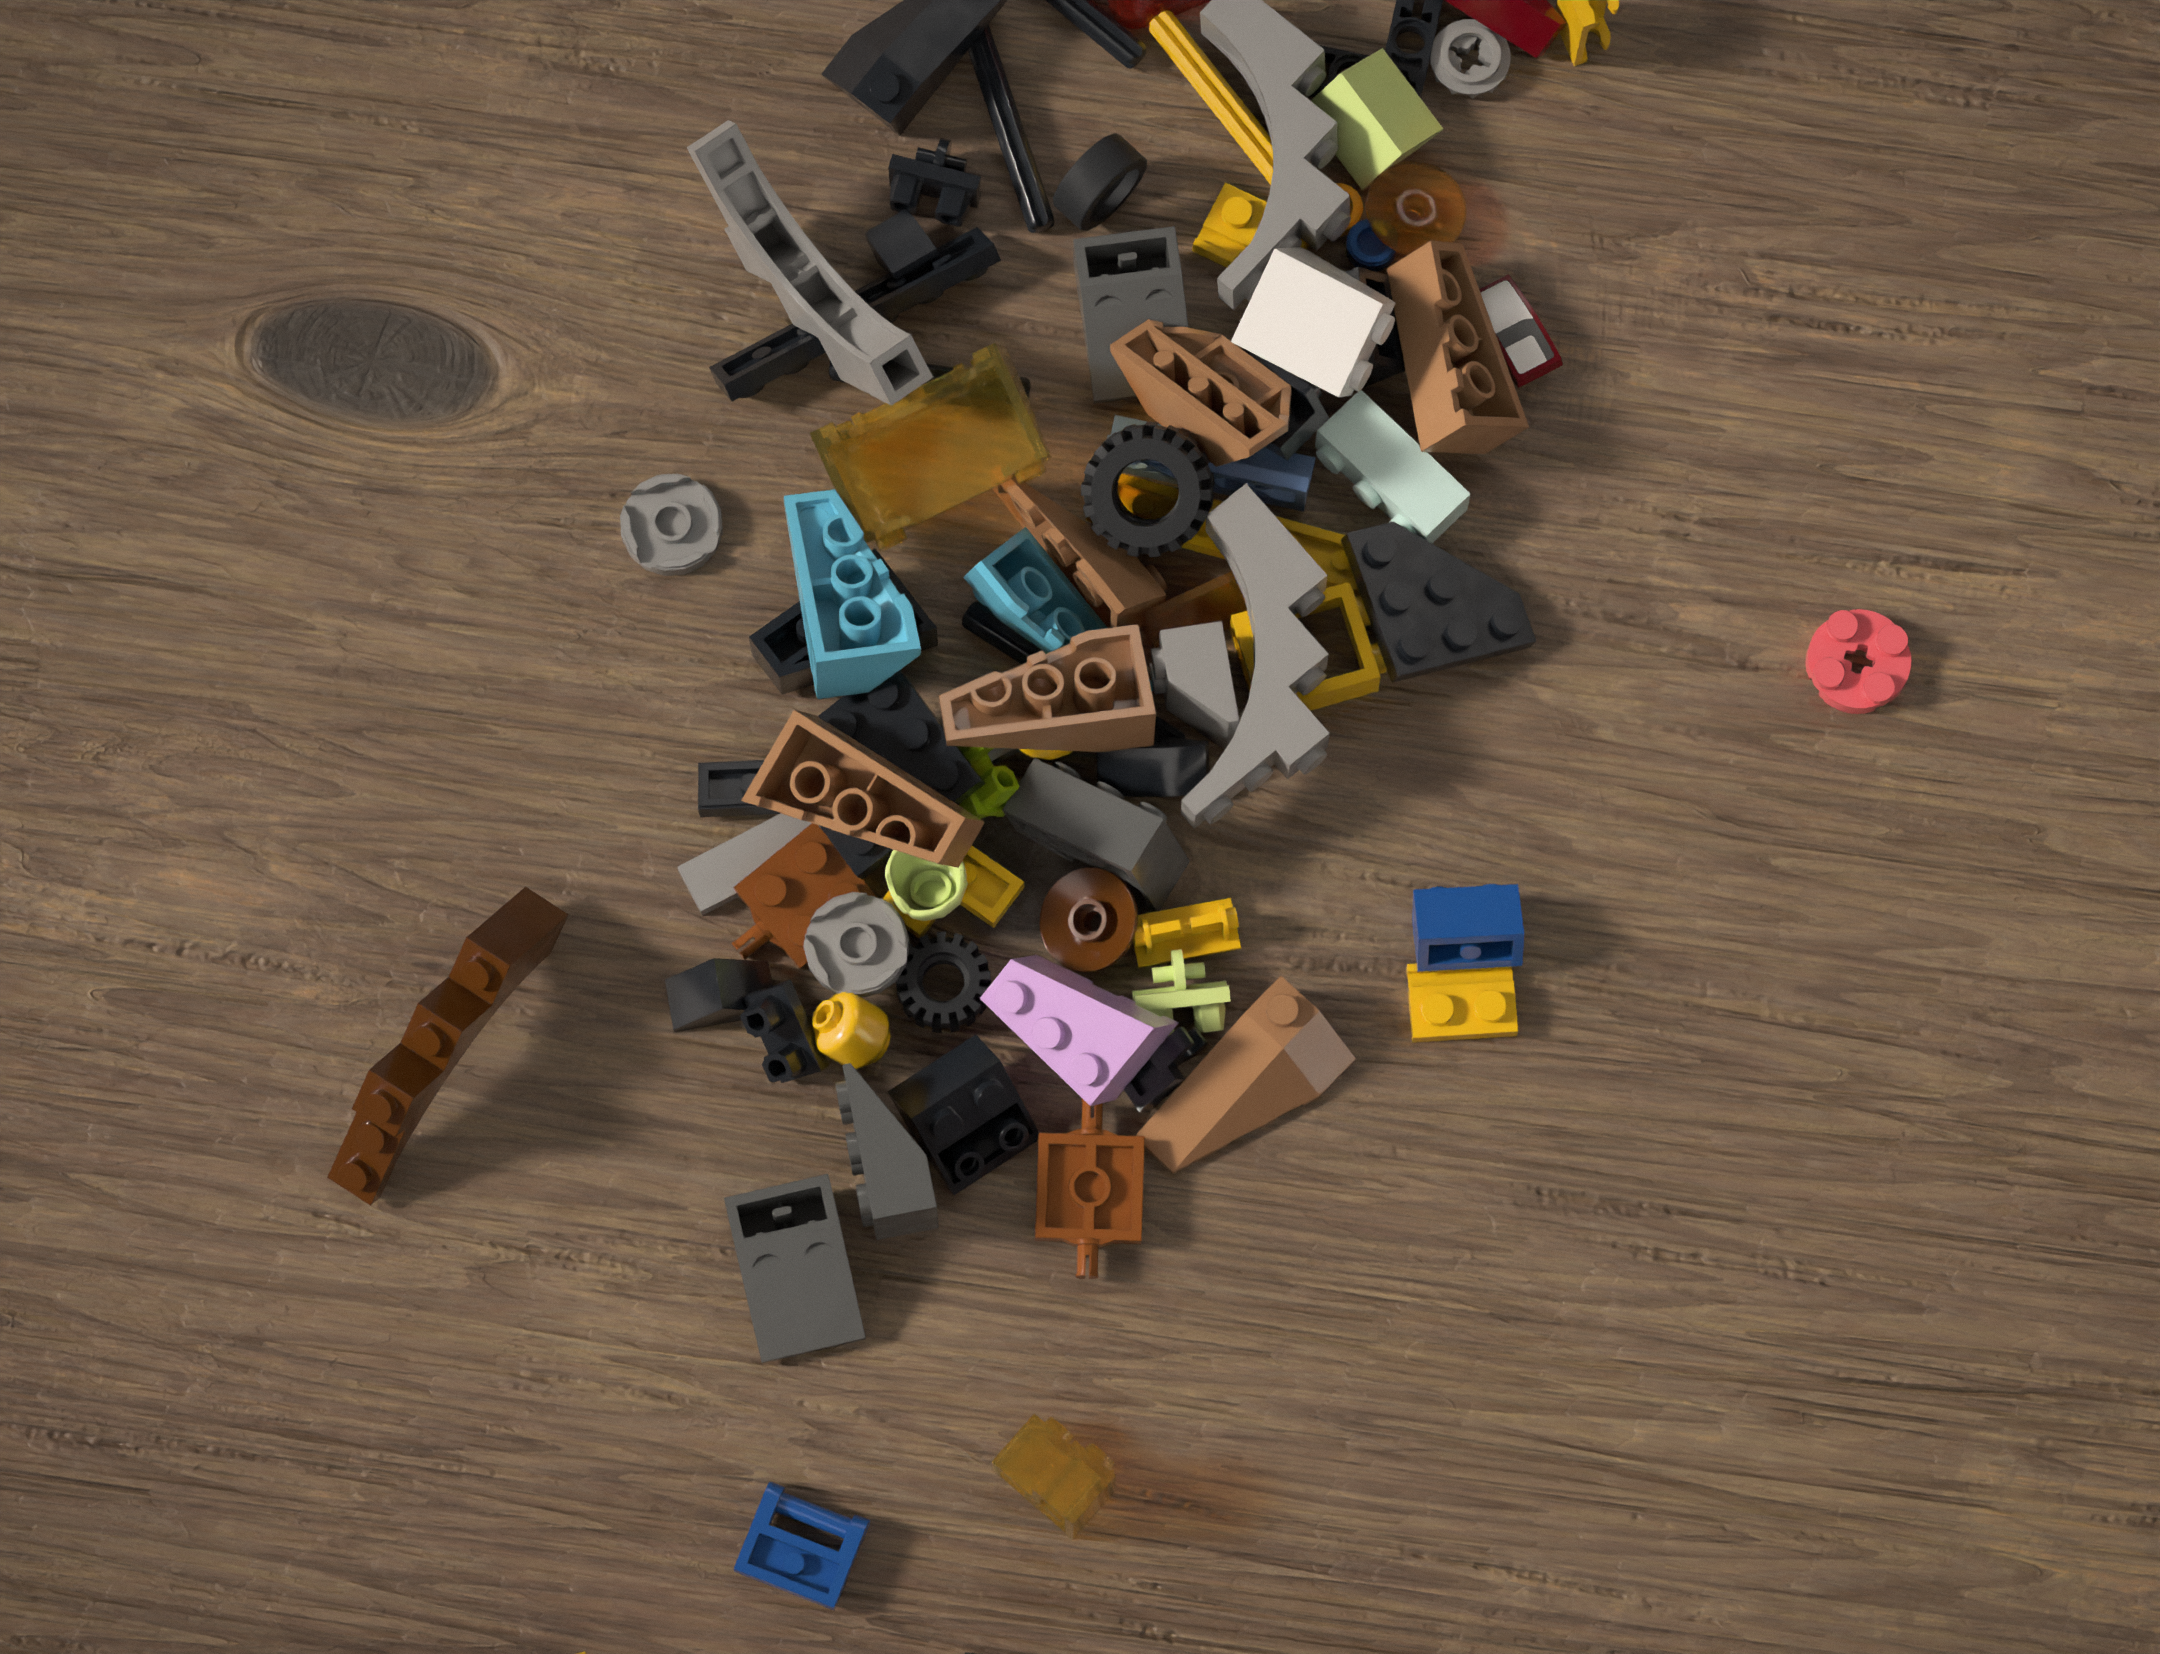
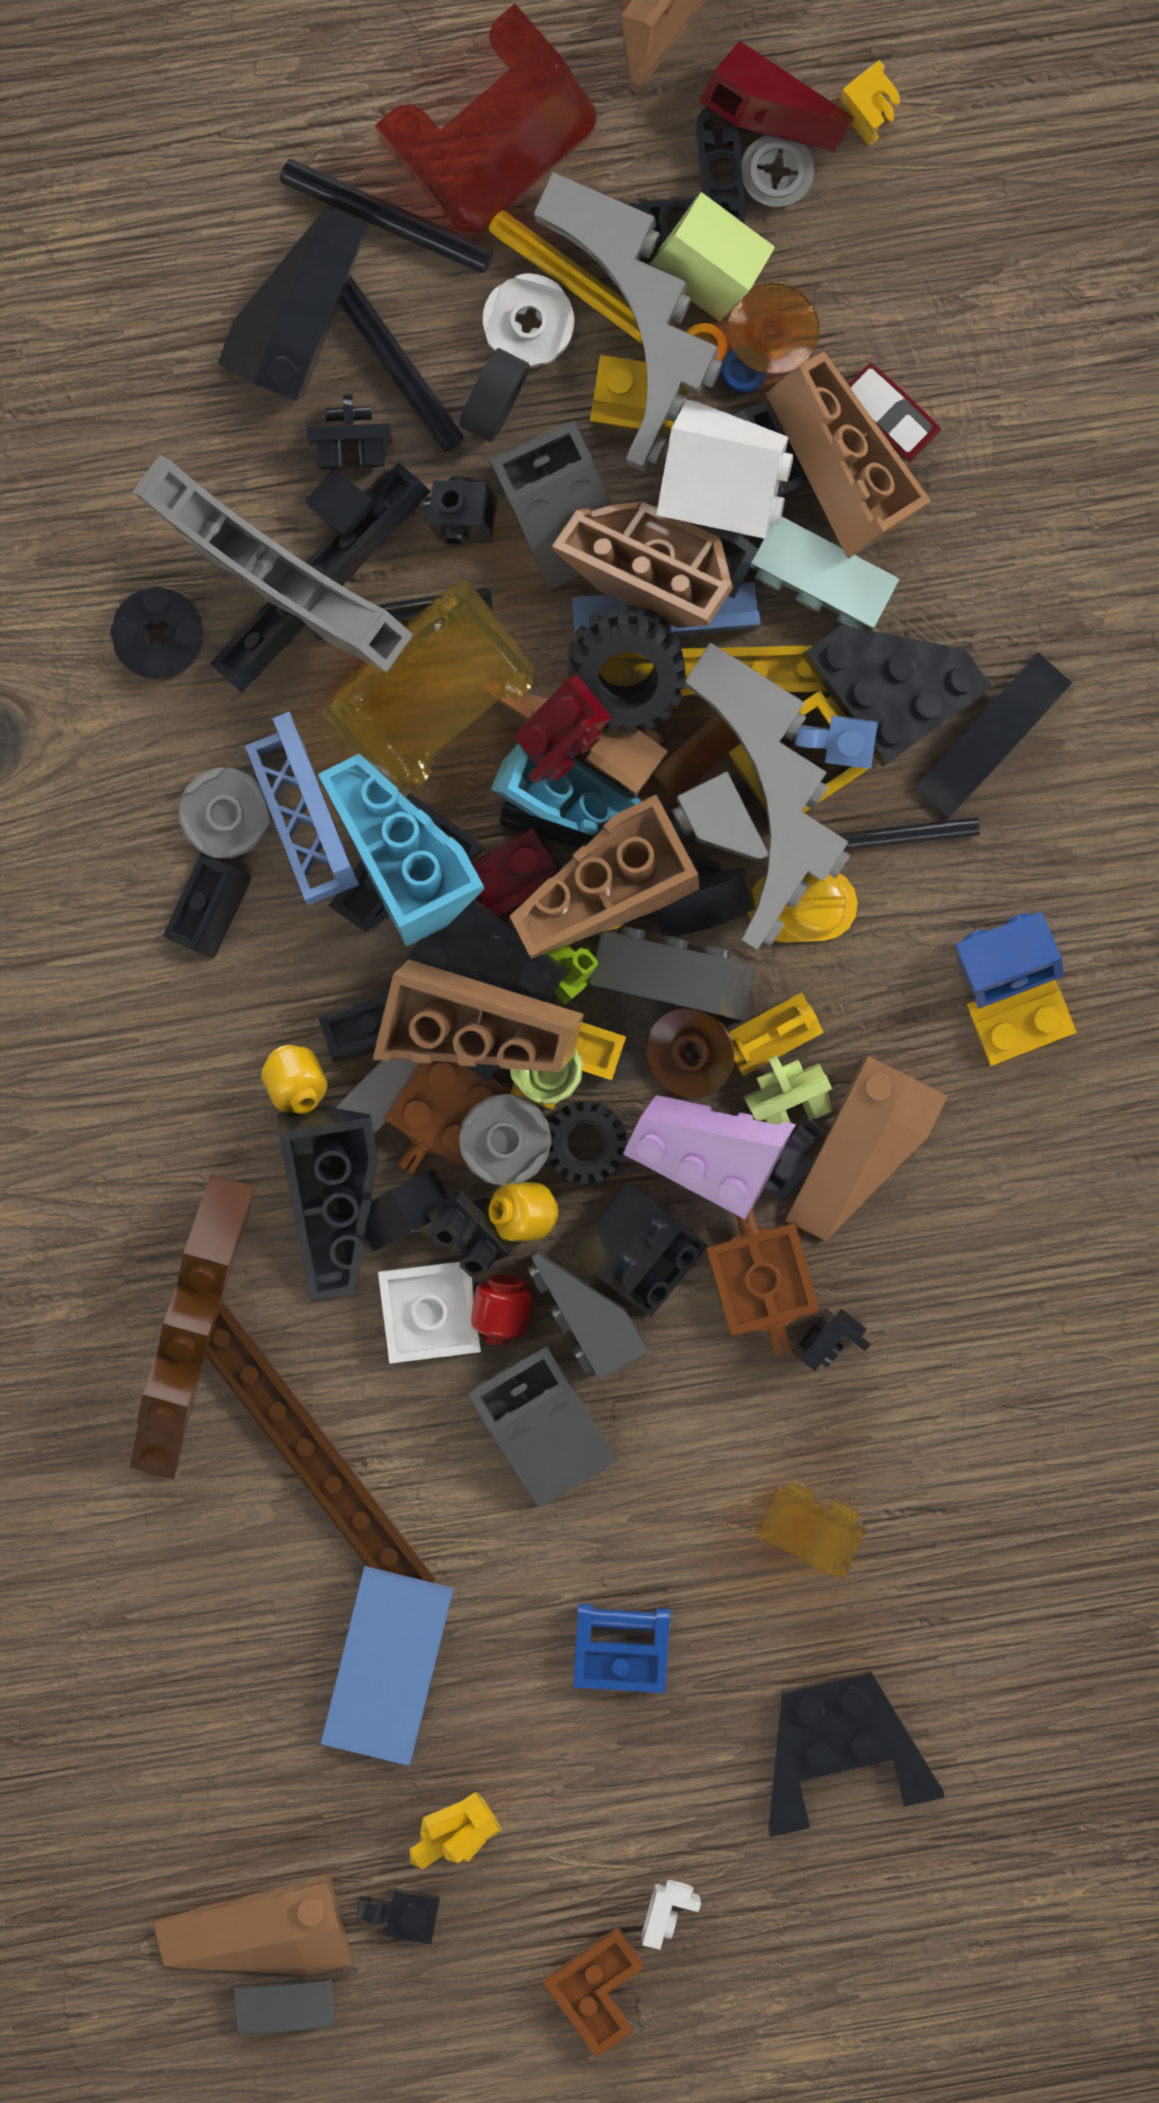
camera: 15 degrees left, 15 degrees up
(532, 1232) = (309, 1450): none -> reddish brown tile
(534, 1481) = (387, 1665): none -> medium blue tile
(620, 614) = (207, 906): none -> black slope
(650, 815) = (294, 1079): none -> yellow head
(650, 937) = (330, 1180): none -> black wedge
(667, 292) = (157, 606): none -> black plate
(712, 1110) = (428, 1312): none -> white plate
(769, 530) = (313, 799): none -> medium blue fence
(792, 1130) = (501, 1308): none -> red head
(954, 665) = (514, 872): none -> dark red bracket
(1026, 289) = (461, 511): none -> black brick
(1059, 523) = (562, 728): none -> dark red bracket
(1134, 1268) = (822, 1340): none -> black bracket
(1189, 124) = (551, 307): none -> white plate
(1274, 818) = (820, 914): none -> yellow piece
(1360, 637) = (847, 741): none -> medium blue plate
(1401, 769) = (911, 833): none -> black bar
(1520, 692) = (993, 735): none -> black slope

